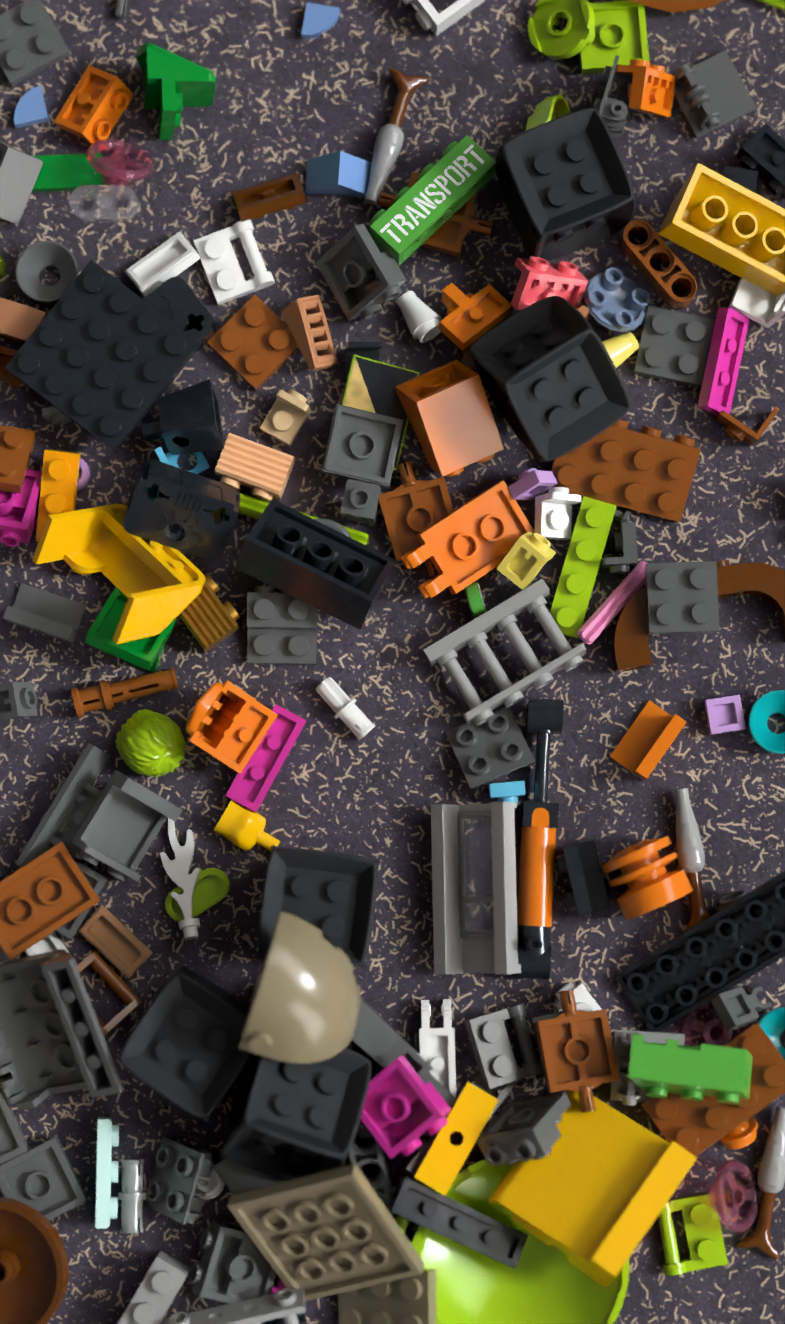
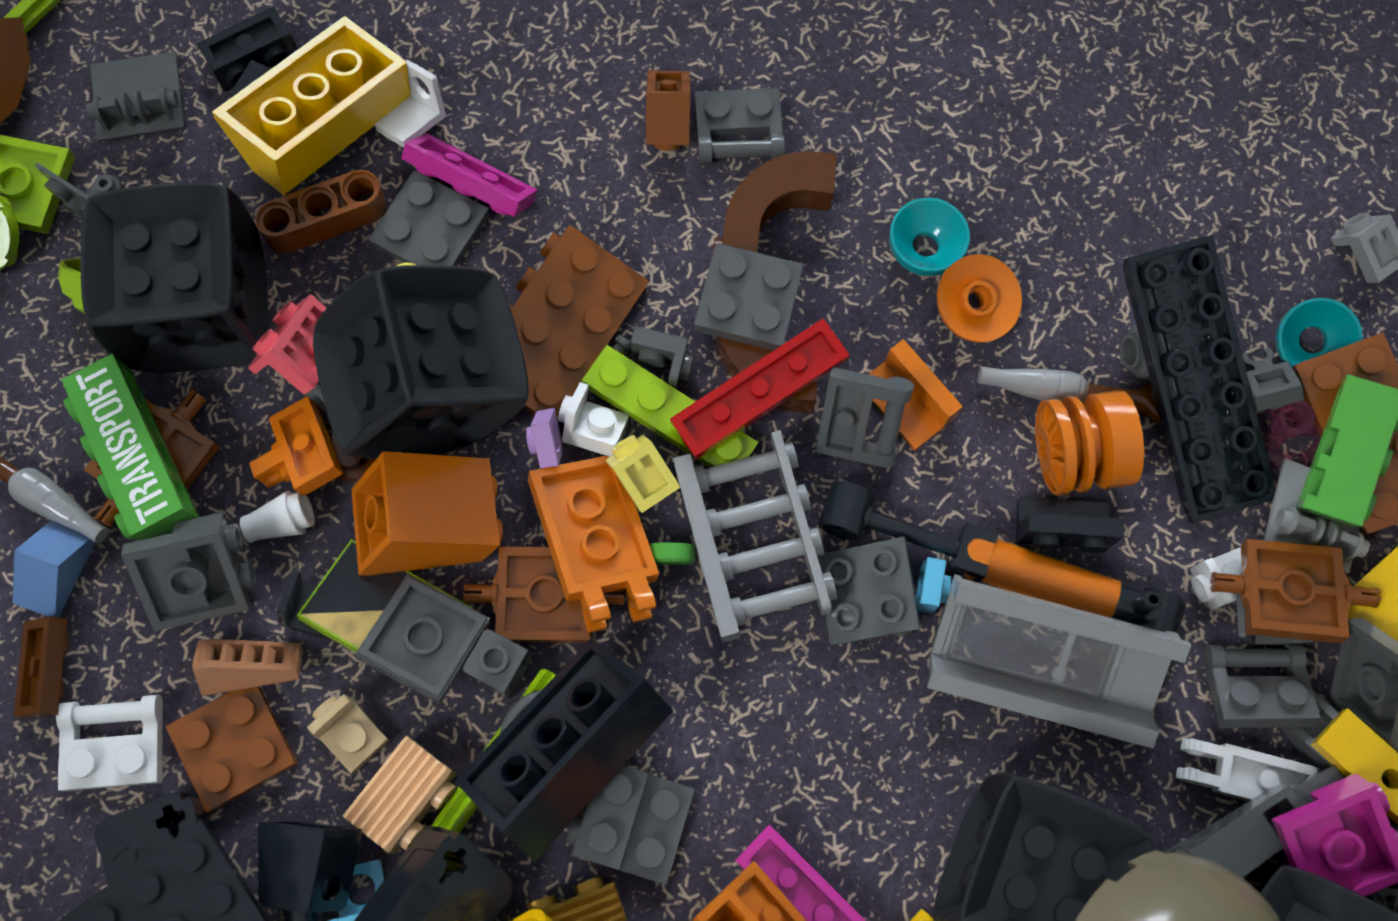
camera: 80 degrees left, 10 degrees down
(162, 263) = (72, 844): white tile -> none
(344, 708) = (765, 766): white axle -> none
(612, 625) = (759, 389): none -> red plate
(613, 604) = (718, 372): bright pink axle -> none
(614, 696) = (848, 413): none -> dark grey plate
(616, 301) = (341, 267): sand blue dish -> none
(650, 87) = (94, 151): orange bracket -> none
(724, 714) = (901, 299): lavender plate -> none
(736, 790) = (997, 295): none -> orange dish
(739, 431) = (560, 179): dark orange bracket -> none

